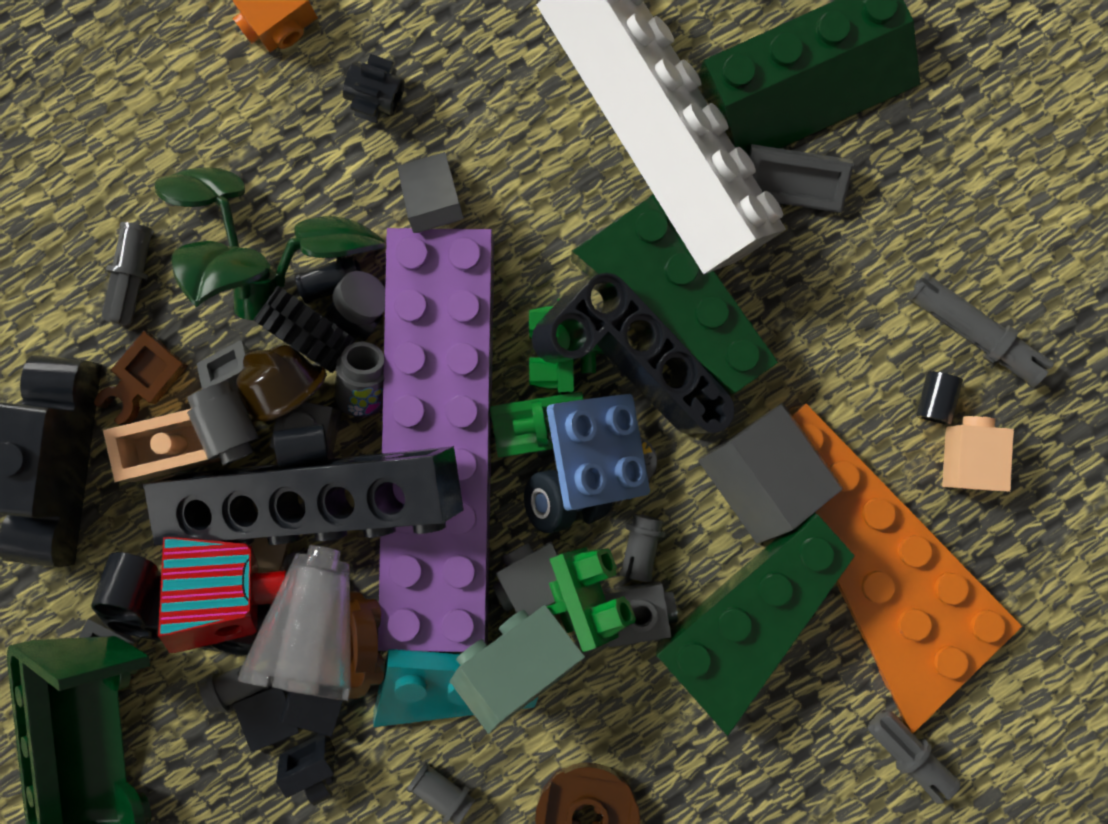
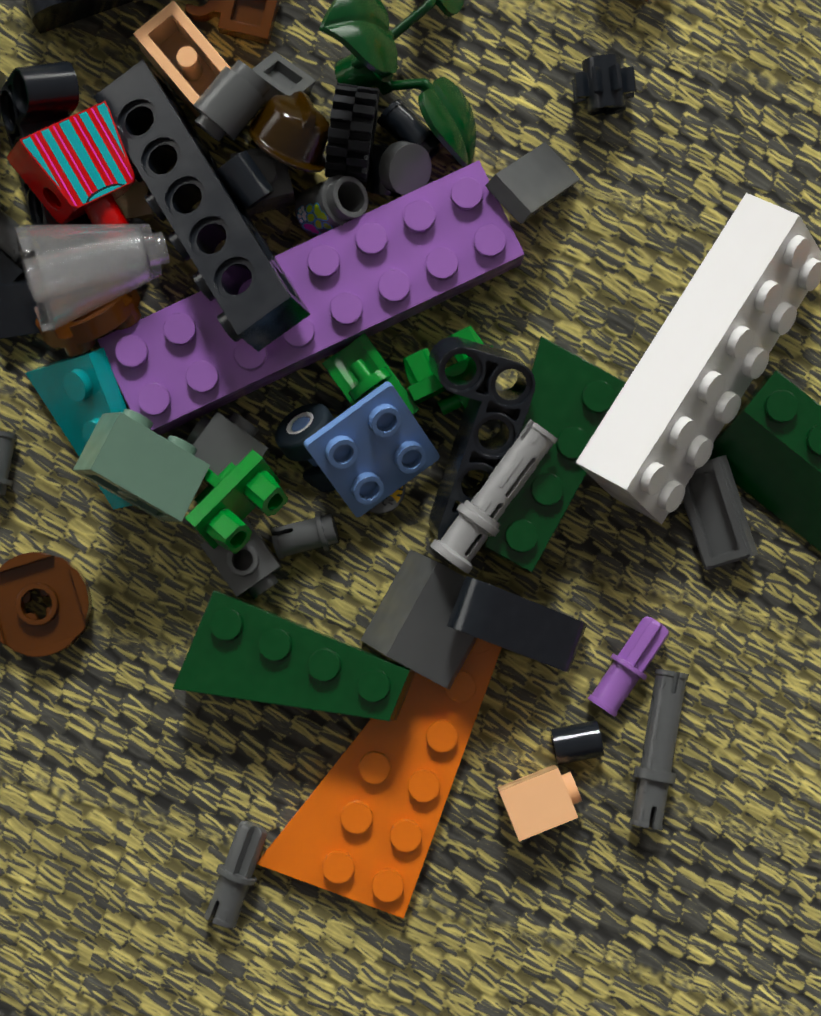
camera: 60 degrees right, 0 degrees up
(709, 383) = (479, 517): none -> light grey pin
(816, 400) = (516, 624): none -> black beam
(893, 319) = (629, 665): none -> medium lavender axle

